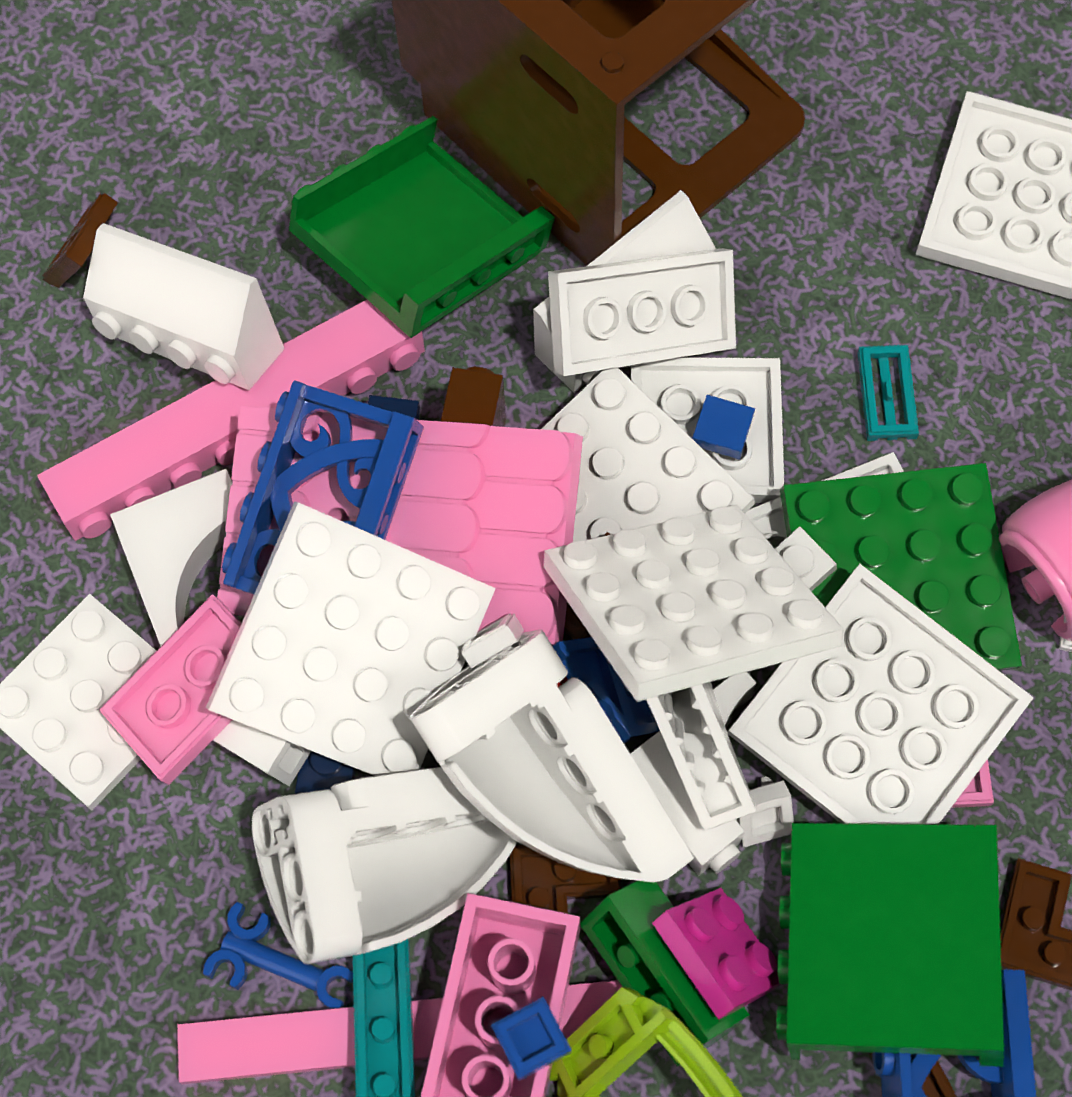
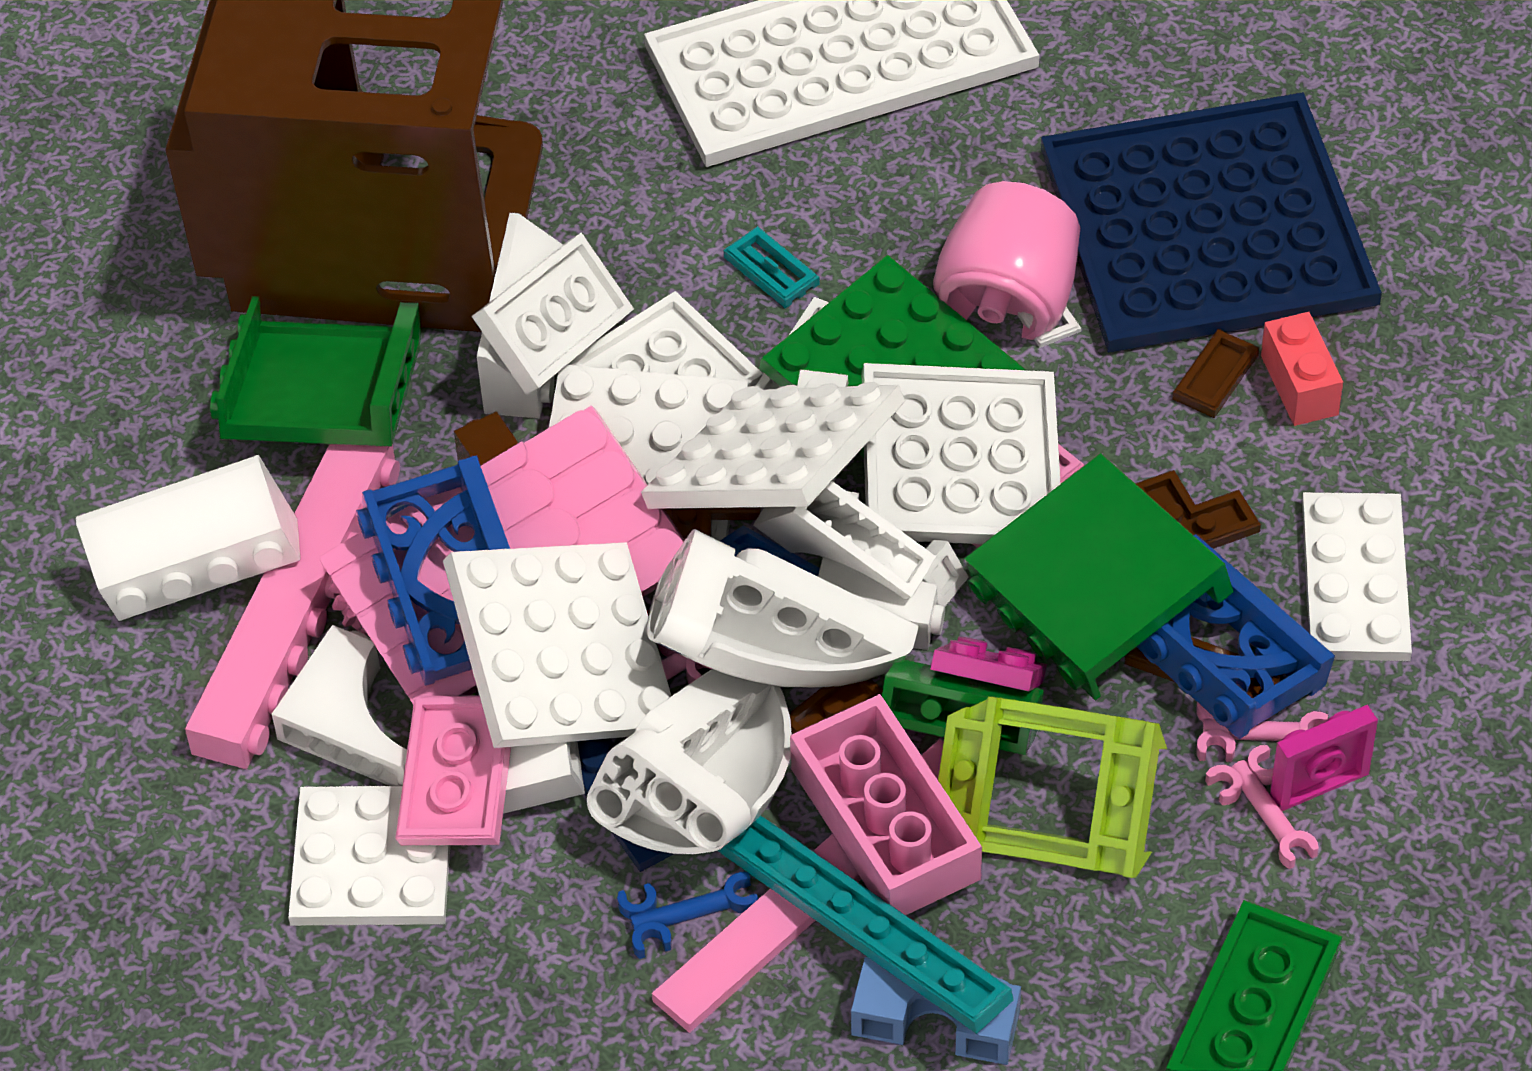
camera: 40 degrees left, 15 degrees down
(80, 241) = (49, 562): reddish brown tile -> none
(492, 640) = (656, 575): white tile -> none
(531, 1038) = (918, 780): blue tile -> none
(723, 426) = (679, 354): blue tile -> none

